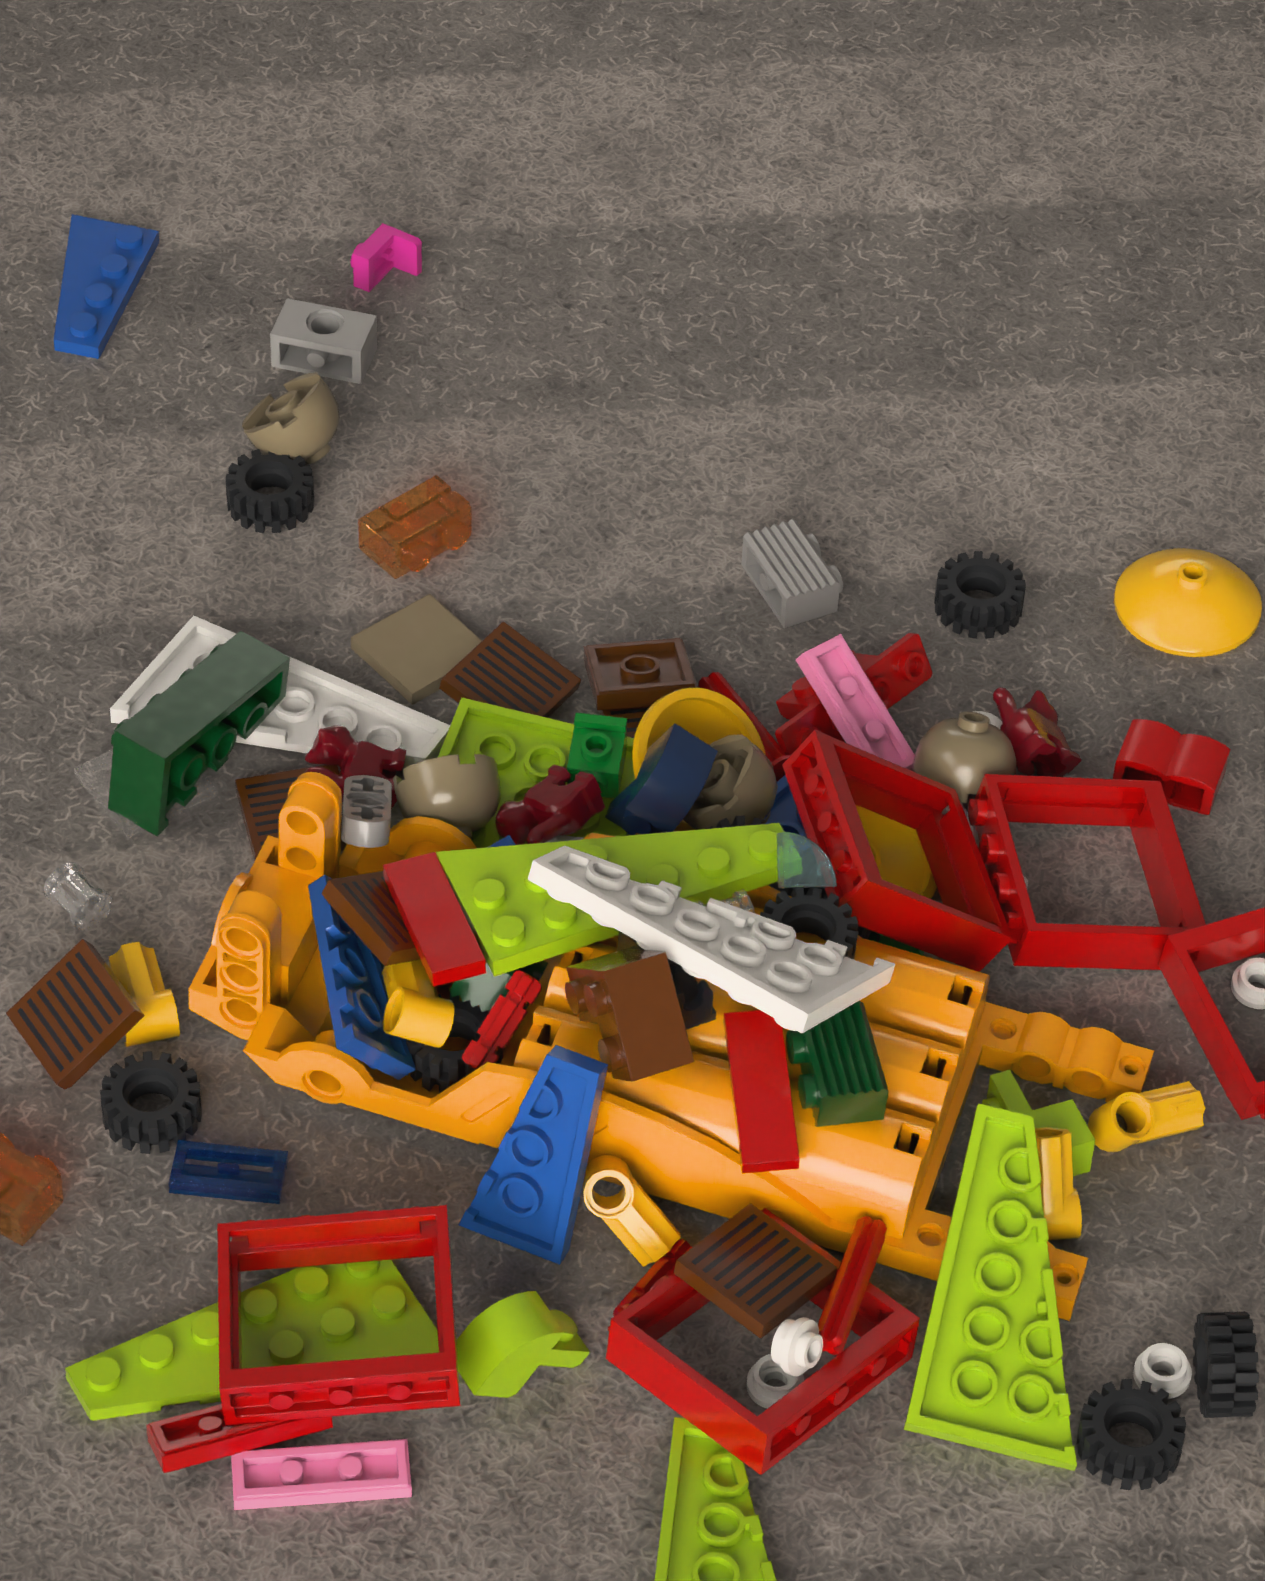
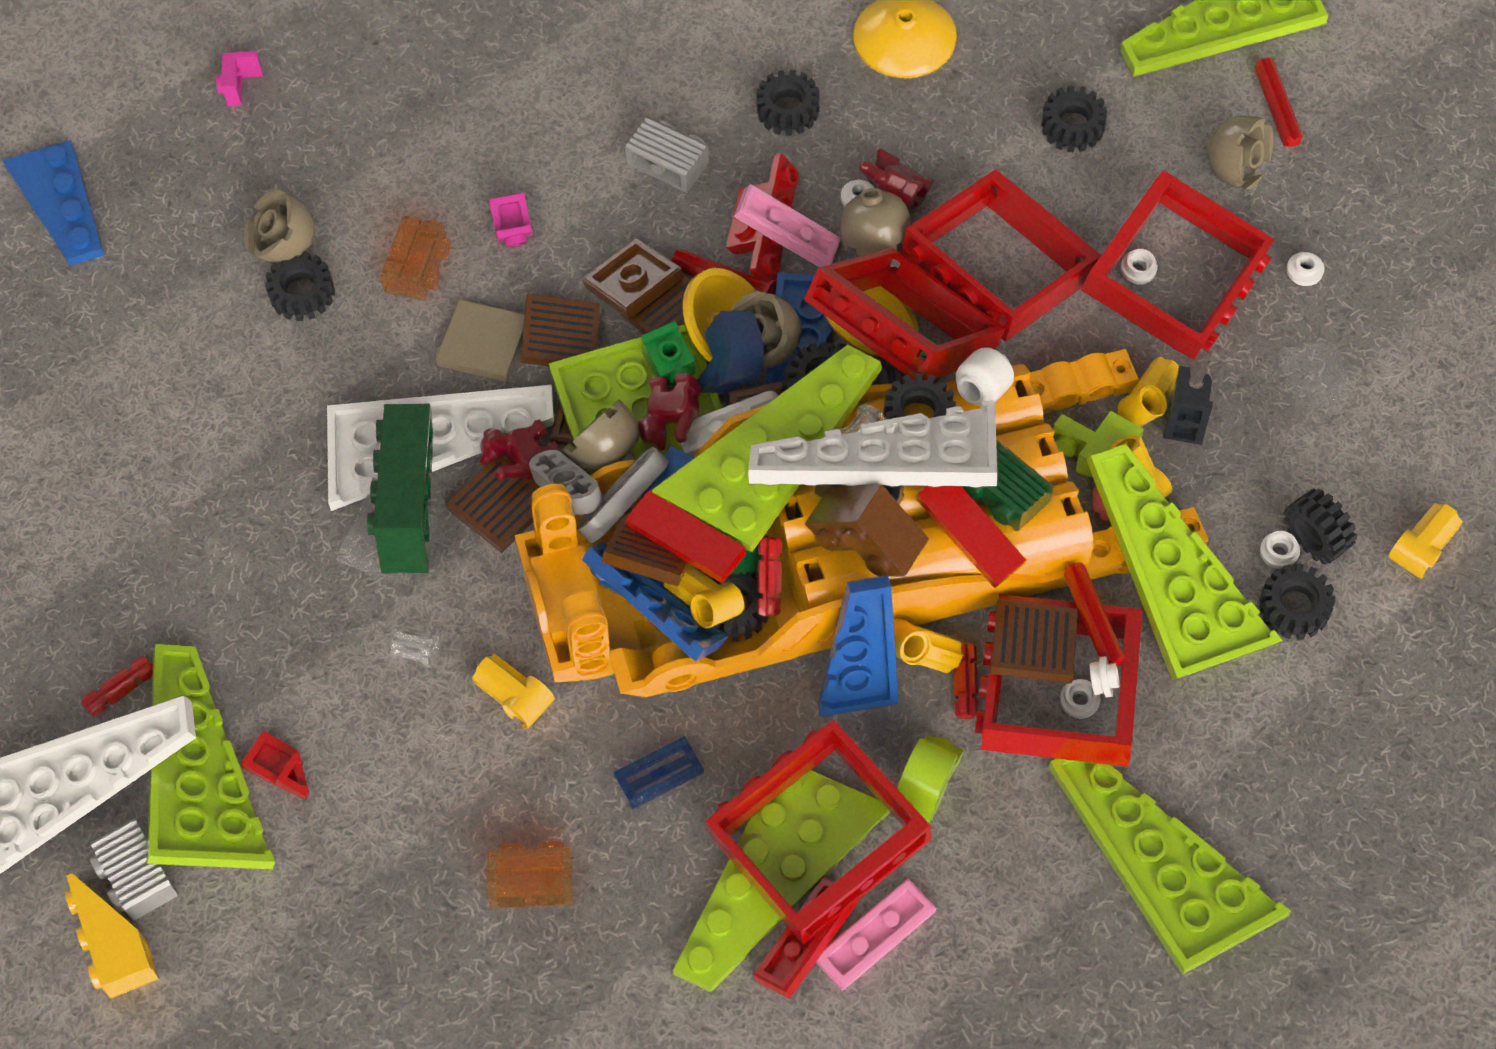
camera: 30 degrees left, 15 degrees up
(75, 1014) = (485, 731): reddish brown tile -> none
(150, 1126) = (570, 737): black tyre -> none
(323, 340) = (247, 158): light grey brick -> none
(456, 837) = (623, 494): none -> light grey beam
(555, 546) = (511, 219): none -> dark pink bracket
(802, 863) = (887, 365): clear light blue tile -> none
(916, 943) = (984, 376): none -> white head
(1164, 1147) = (1188, 409): none -> black hinge
(1186, 764) = (979, 152): red brick -> none

